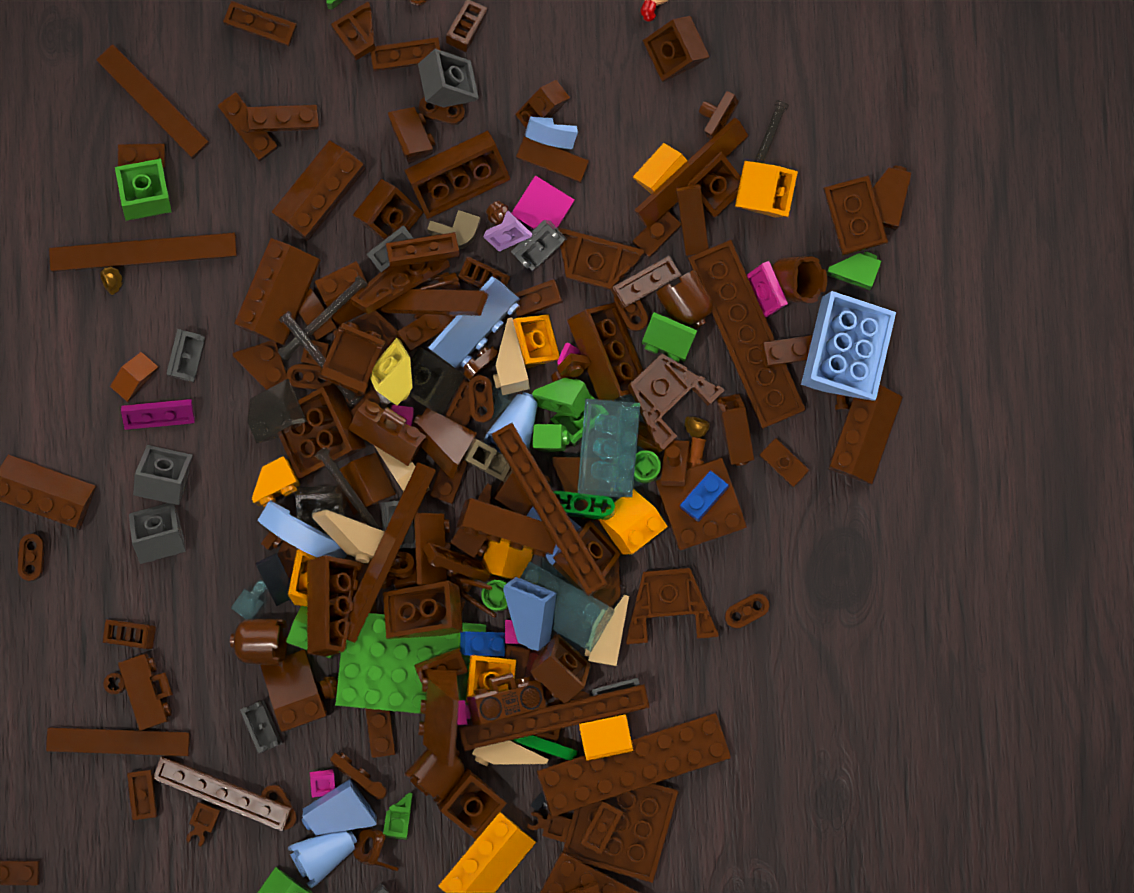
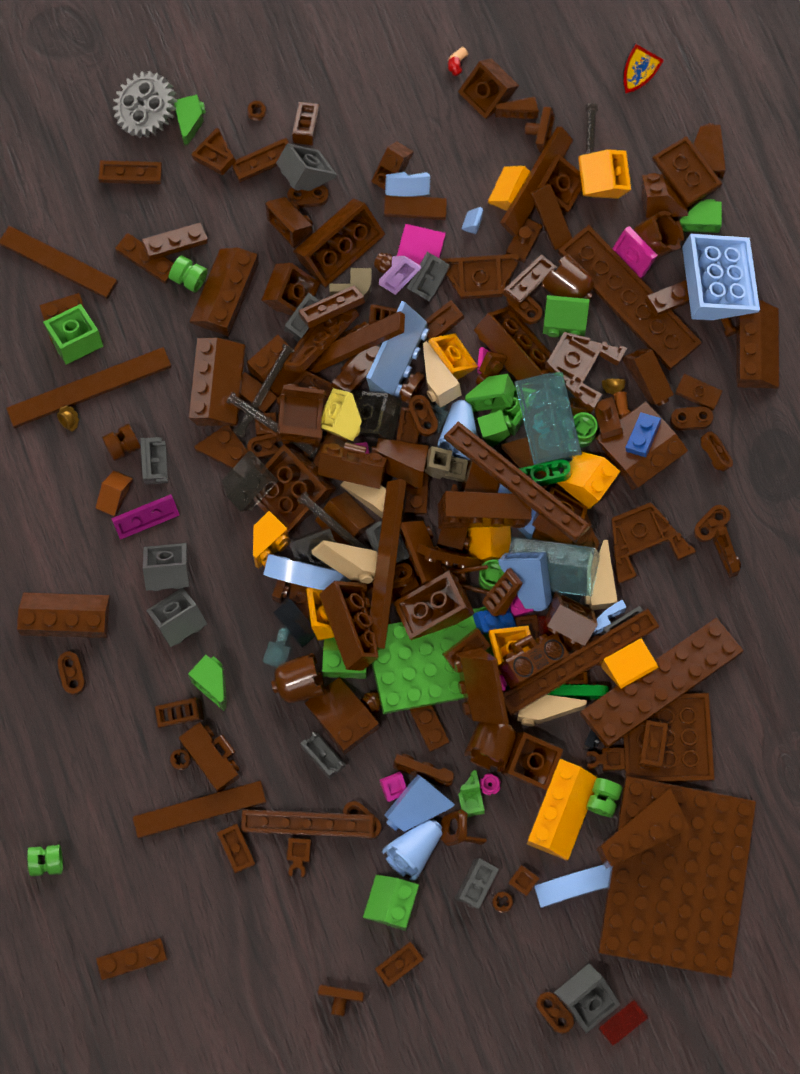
camera: 20 degrees left, 10 degrees down
(149, 329) = (121, 442): none -> reddish brown wheel
(169, 614) = (210, 680): none -> bright green slope
(287, 162) = (185, 272): none -> bright green wheel
(428, 811) = (490, 778): none -> dark pink plate
(495, 622) = (493, 602): none -> reddish brown slope
(538, 858) = (604, 789): none -> bright green wheel
(594, 680) = (603, 620): none -> light blue slope
(608, 194) = (473, 220): none -> light blue slope
(703, 83) = (521, 108): none -> reddish brown slope
(750, 639) = (726, 552): none -> reddish brown wing
(766, 489) = (692, 419): none -> reddish brown plate
(779, 534) = (717, 452): none -> reddish brown plate
(818, 236) = (660, 196): none -> reddish brown slope
(847, 78) = (639, 68): none -> shield

